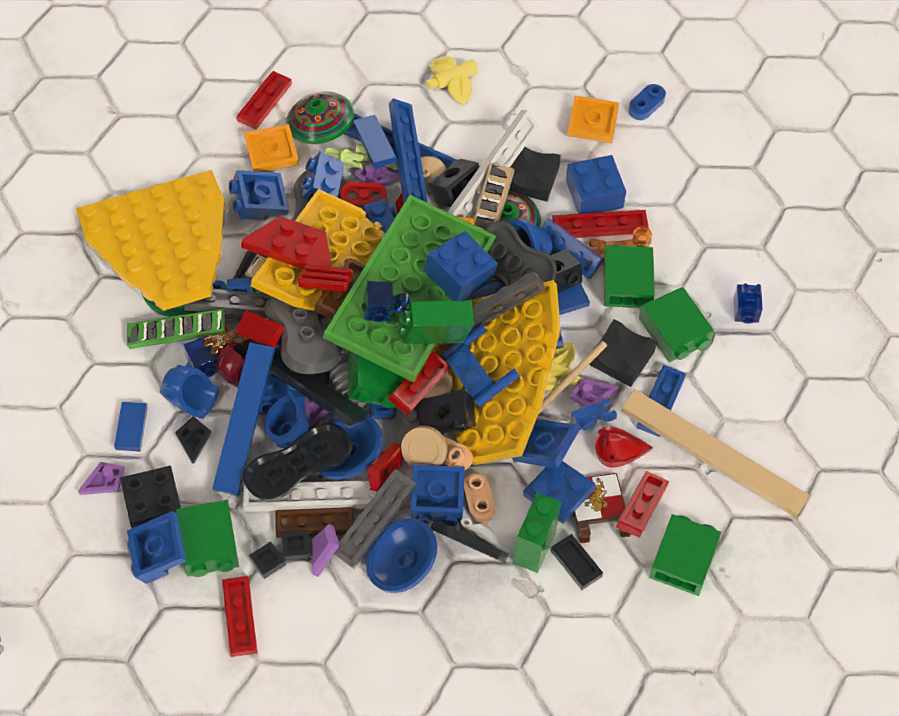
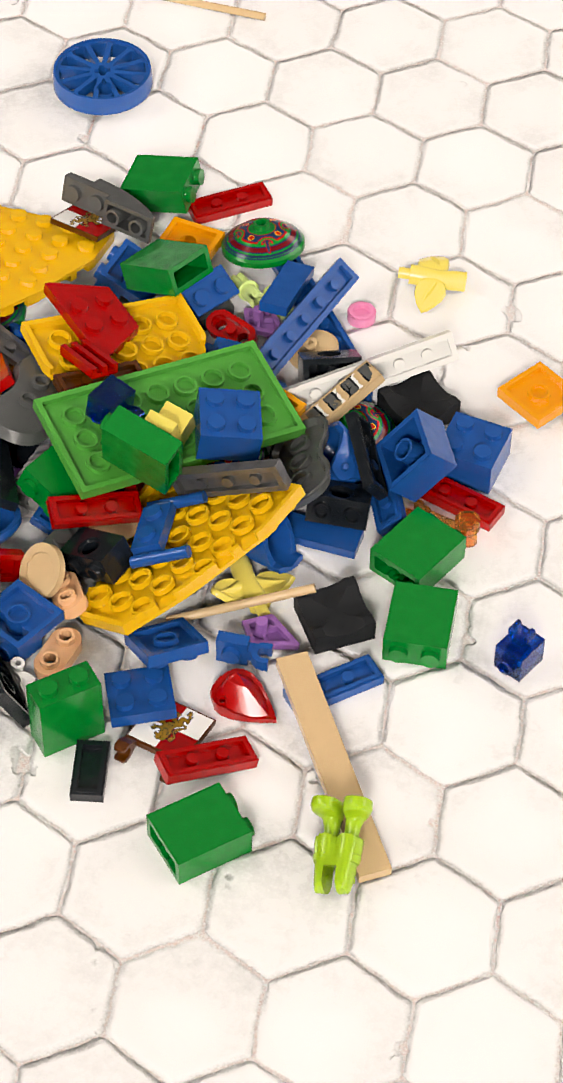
camera: 40 degrees right, 10 degrees down
(86, 54) = (102, 78): none -> blue piece
(190, 171) = (82, 223): none -> flag
(201, 149) = (114, 205): none -> dark grey slope
(212, 112) = (164, 182): none -> green brick
(291, 176) = (166, 267): none -> green brick
(429, 130) = (361, 314): none -> bright pink tile
(432, 289) = (173, 421): none -> light yellow brick
(548, 230) = (366, 455): none -> black tile
(579, 211) = (416, 455): none -> blue brick
(776, 509) = (335, 849): none -> lime piece

